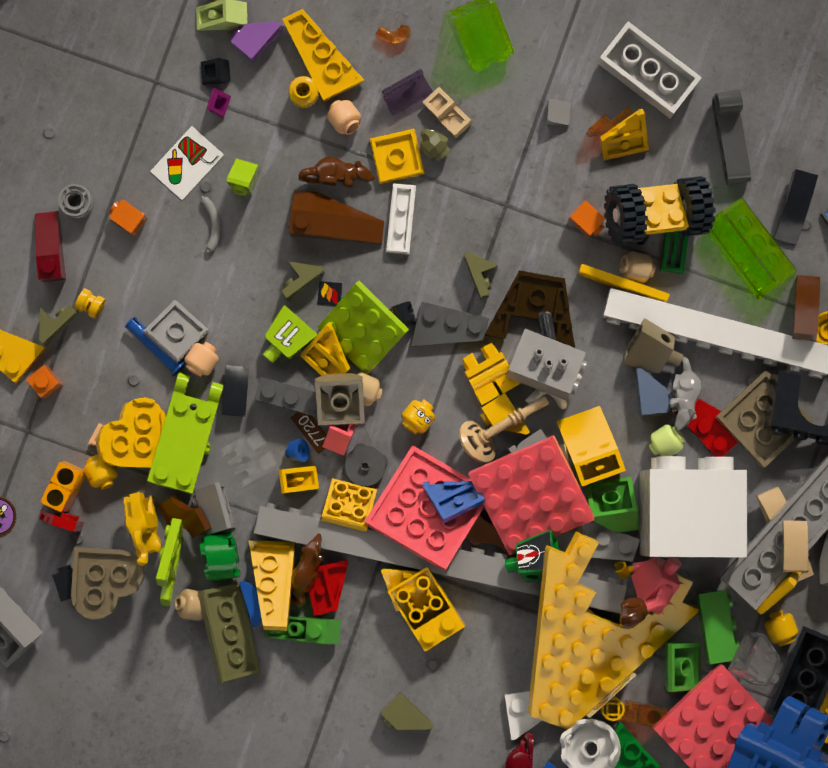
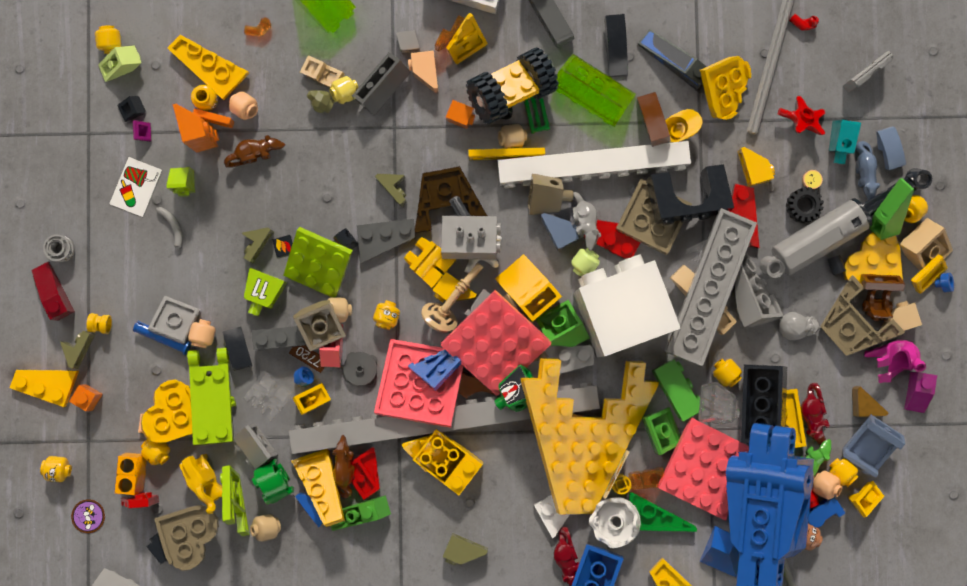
camera: 20 degrees left, 0 degrees up
(127, 217) = (103, 245): orange brick -> none
(192, 518) = (238, 461): reddish brown tile -> none
(229, 632) = (301, 539): olive tile -> none
(255, 38) = (152, 70): medium lavender slope -> none
(282, 128) = (195, 131): none -> orange slope
(304, 118) = (214, 118): none -> orange tile
(325, 218) = (259, 189): reddish brown wedge -> none
(326, 353) = (296, 292): yellow wing -> none
(348, 504) = (357, 403): yellow tile -> none
(397, 156) = (296, 121): yellow tile -> none
(401, 219) = (317, 168): white tile -> none
(406, 92) = (284, 68): clear purple panel -> none
(465, 142) = (343, 89): none -> light yellow head
(510, 151) = (381, 83): none -> dark grey brick
(566, 152) = (424, 68): none -> light nougat slope
(654, 585) = (617, 376): coral torso -> none
(780, 591) = (717, 342): yellow tile -> none
(795, 546) = (714, 305): tan slope -> none

